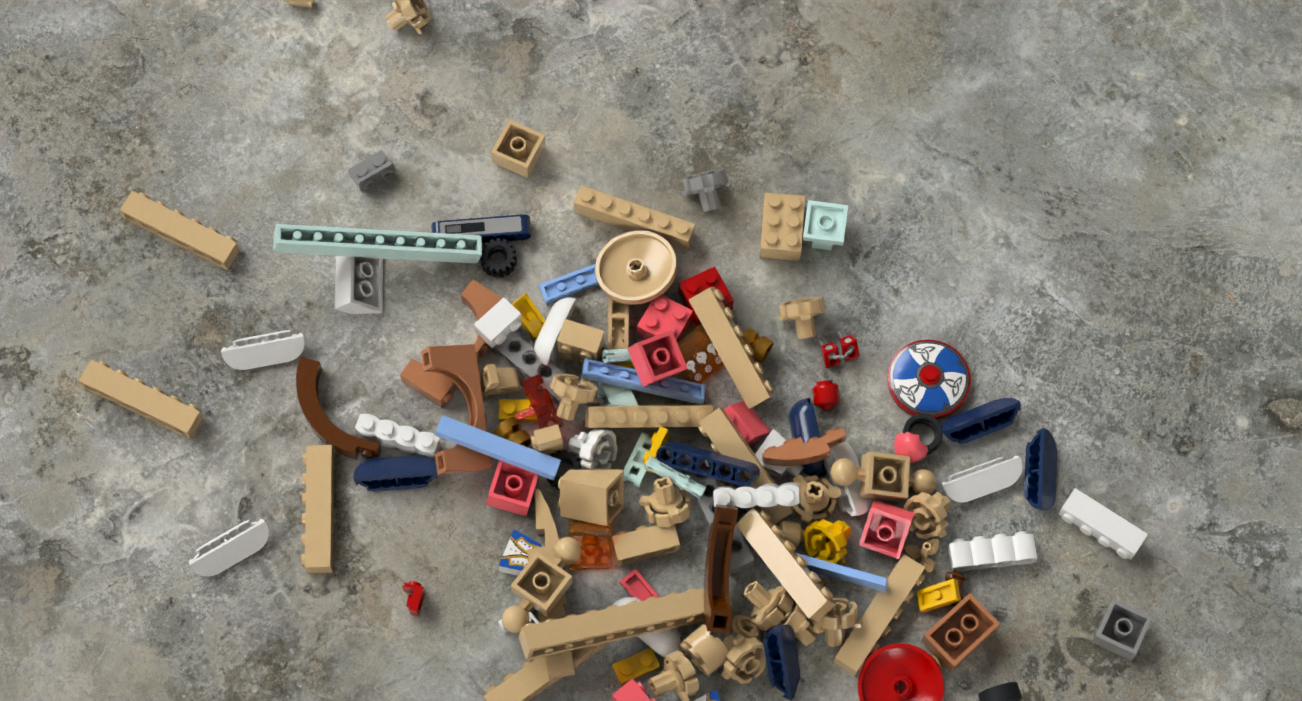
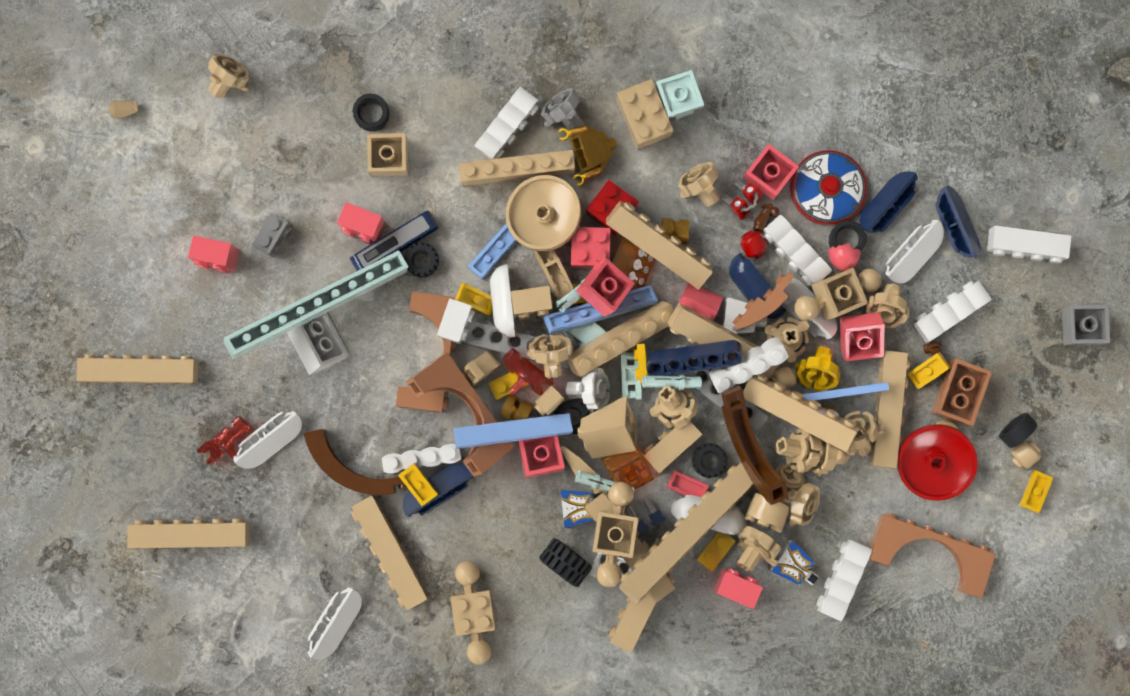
camera: 30 degrees left, 15 degrees up
(222, 331) = (225, 440): none -> clear red piece
(308, 159) = (213, 254): none -> coral brick
(366, 603) = (473, 612): none -> tan brick
(380, 453) = (418, 484): none -> yellow plate
(415, 600) = (511, 588): red bracket -> none
(459, 195) = (361, 223): none -> coral brick
(481, 597) = (565, 562): none -> black tyre
(524, 91) = (362, 101): none -> black tyre
(552, 536) = (582, 477): none -> light aqua pin
(573, 605) = (655, 517): none -> piece
(646, 174) = (506, 124): none -> white brick
(674, 563) = (697, 460): none -> black tyre
(712, 234) = (590, 149): none -> pearl gold torso
(782, 659) = (832, 487): dark blue brick -> none
(849, 376) = (762, 219): none -> reddish brown arm
(864, 417) = (796, 251): none -> white brick
(877, 335) = (770, 171): none -> coral brick
(928, 548) = (900, 337): tan plant -> none

